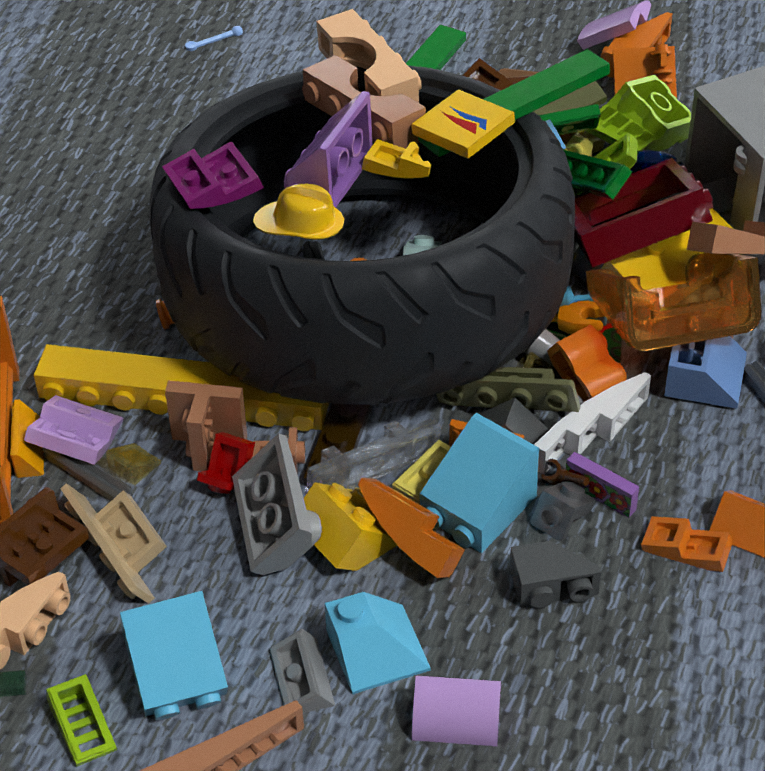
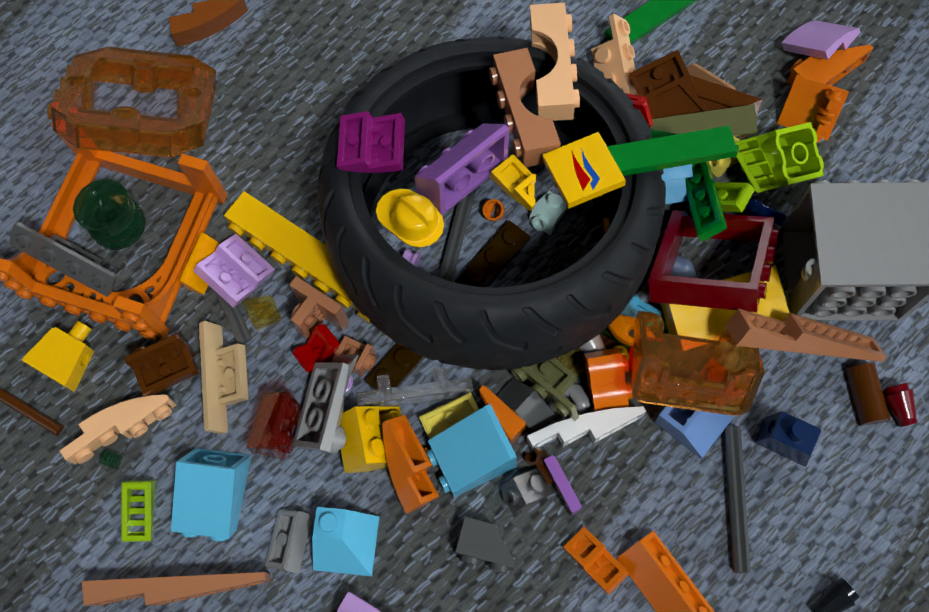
camera: 30 degrees right, 25 degrees up
(219, 551) = (274, 425): none -> clear red slope

